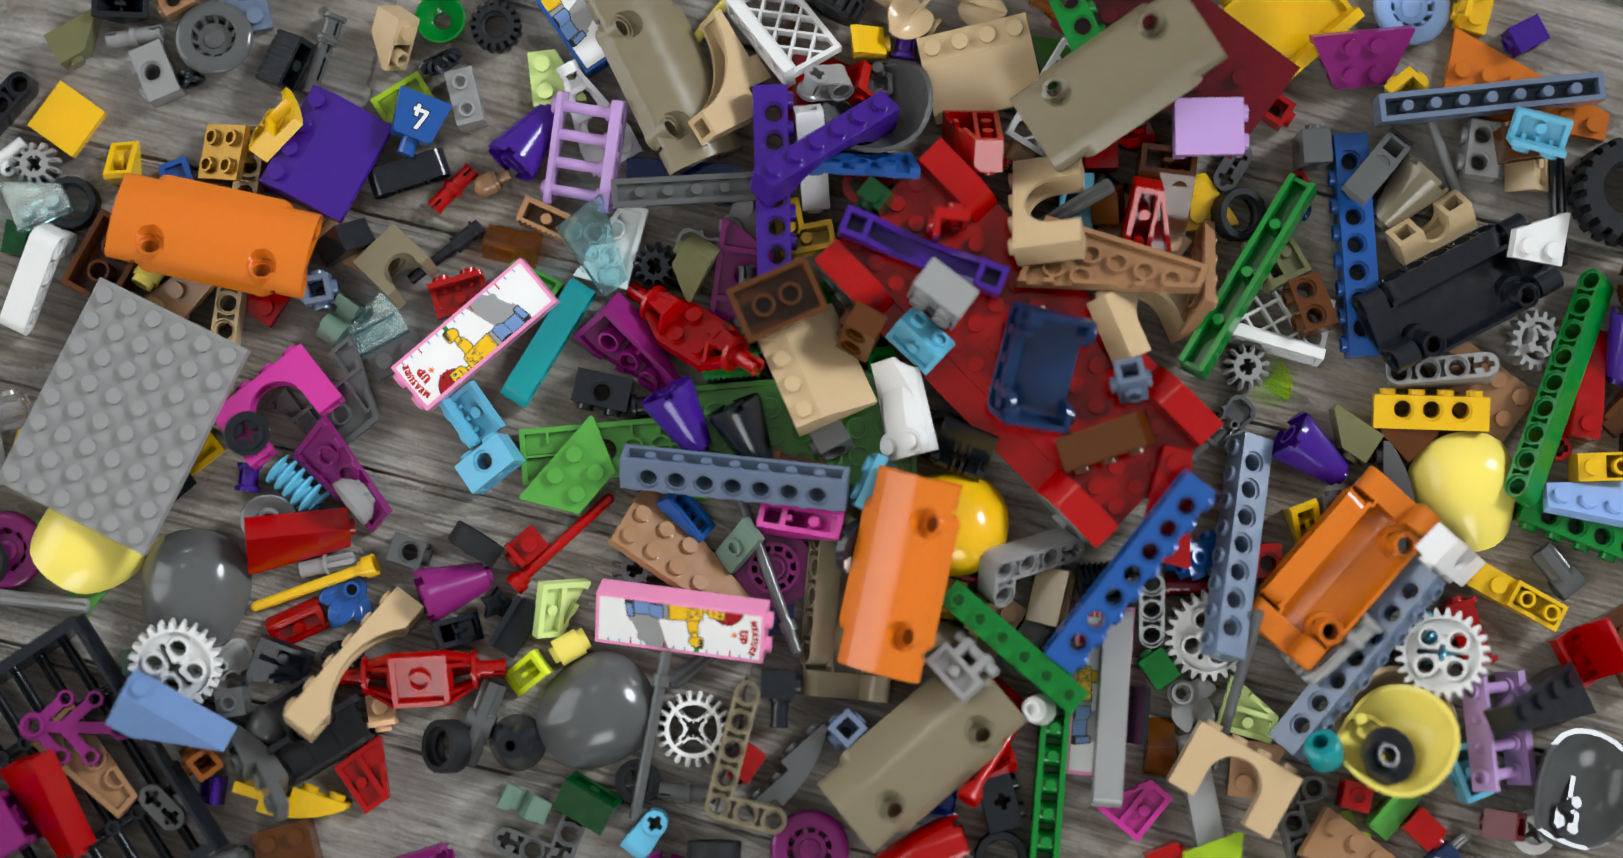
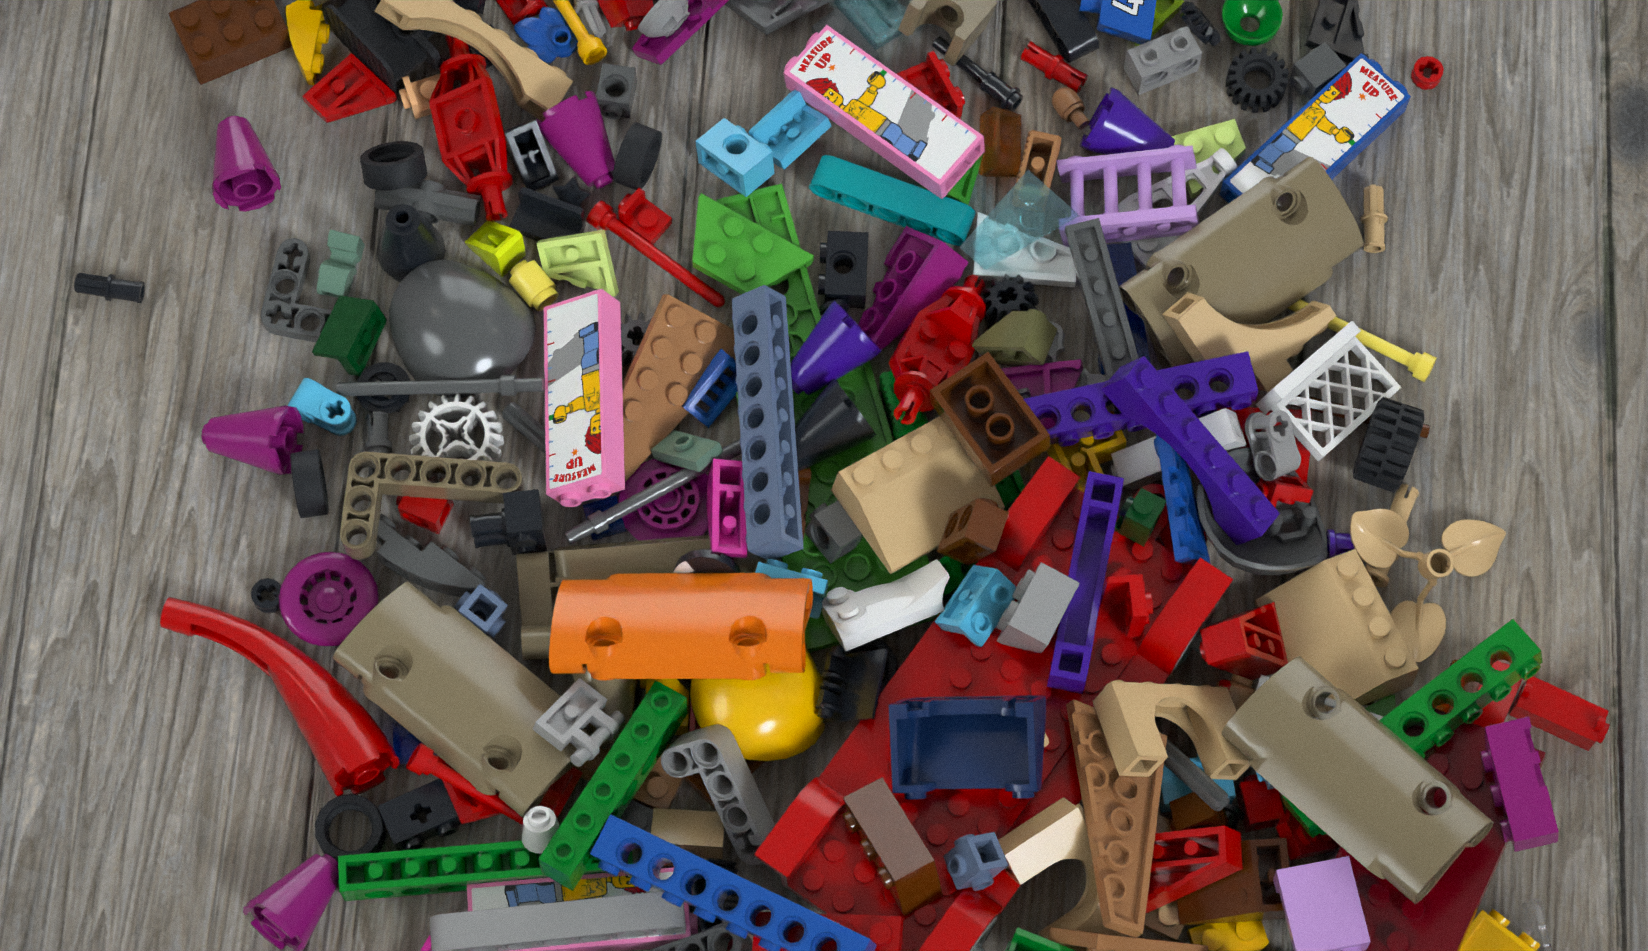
camera: 80 degrees right, 15 degrees down
(868, 43) = (1336, 495): yellow slope -> none

